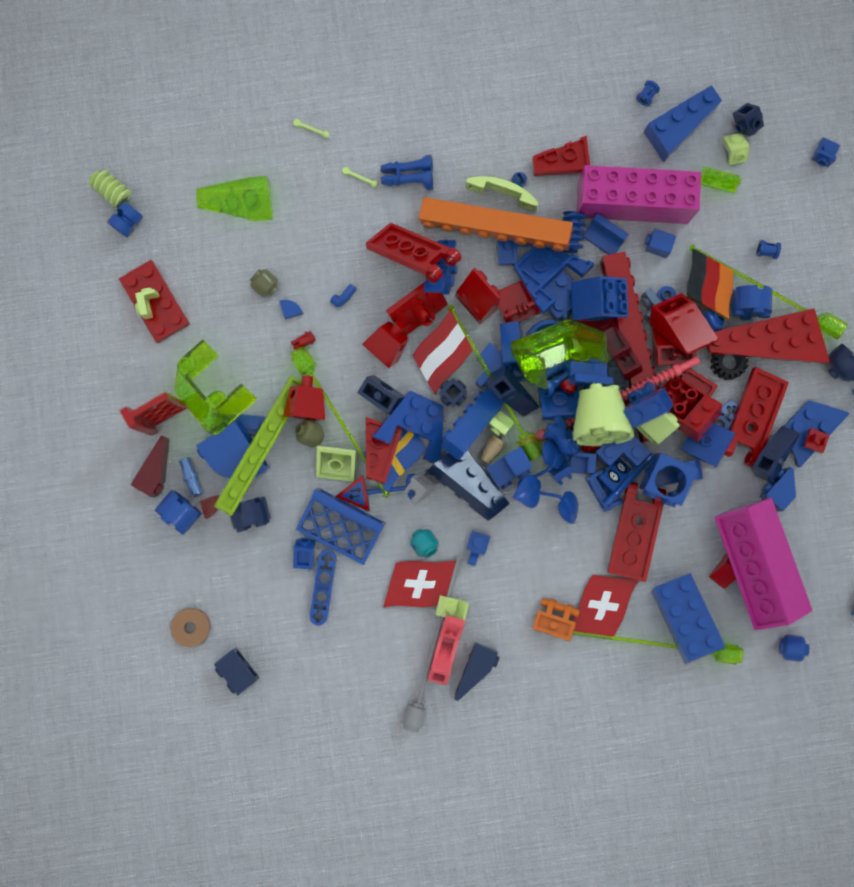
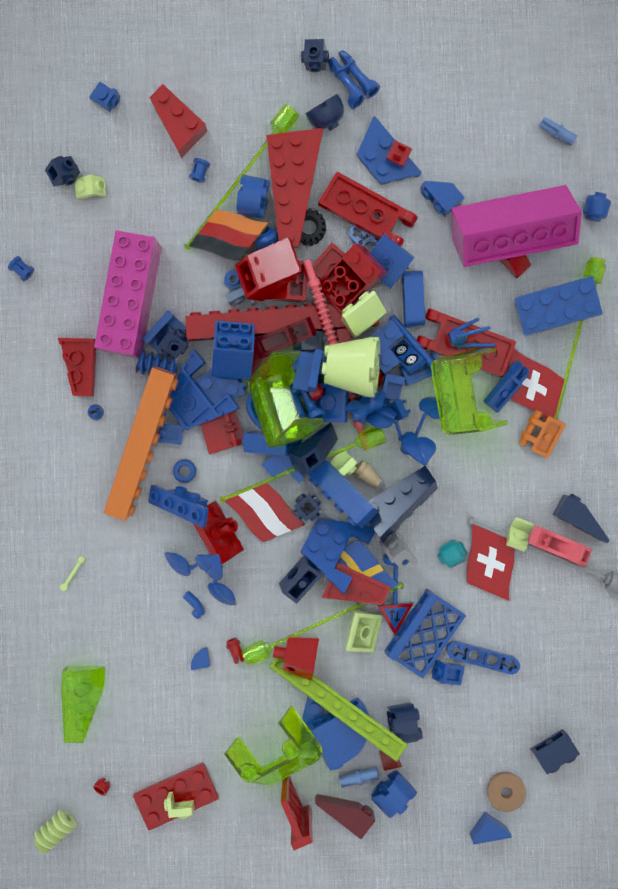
camera: 85 degrees left, 5 degrees up
(125, 219) = (88, 819): blue wheel -> none
(151, 614) = (488, 830): none -> blue slope
(156, 229) = (101, 787): none -> red hinge
(264, 283) = (171, 683): olive head -> none
(297, 123) = (7, 631): yellowish green hinge -> none
(309, 433) = (330, 655): olive head -> none
(387, 342) = (249, 566): red torso -> none
(388, 300) = (212, 566): none -> blue plant
(398, 179) = (82, 509): blue piece -> none
(412, 250) = (155, 540): red hinge -> none
(471, 263) = (177, 466): none -> blue piece
(477, 544) = (459, 501): blue plate -> none
(478, 296) = (214, 471): red slope -> none
(505, 187) = (95, 452): yellowish green slope -> none
(507, 468) = (389, 461): blue brick -> none
(585, 523) = (456, 393): none -> clear neon green windscreen
(598, 243) = (172, 341): none -> dark blue brick
(598, 577) = (507, 386): none -> blue hinge
(637, 394) = (335, 321): blue arm -> none
(644, 521) = (458, 337): none -> blue plant
(648, 408) = (353, 320): blue brick -> none
(660, 243) = (179, 279): blue brick -> none
(677, 124) = (58, 243): blue wedge -> none
(685, 474) = (441, 306): blue brick -> none
(720, 180) = (120, 208): clear neon green hinge -> none
(775, 454) = (407, 196): dark blue slope -> none
(813, 224) = (180, 122): none -> red wedge

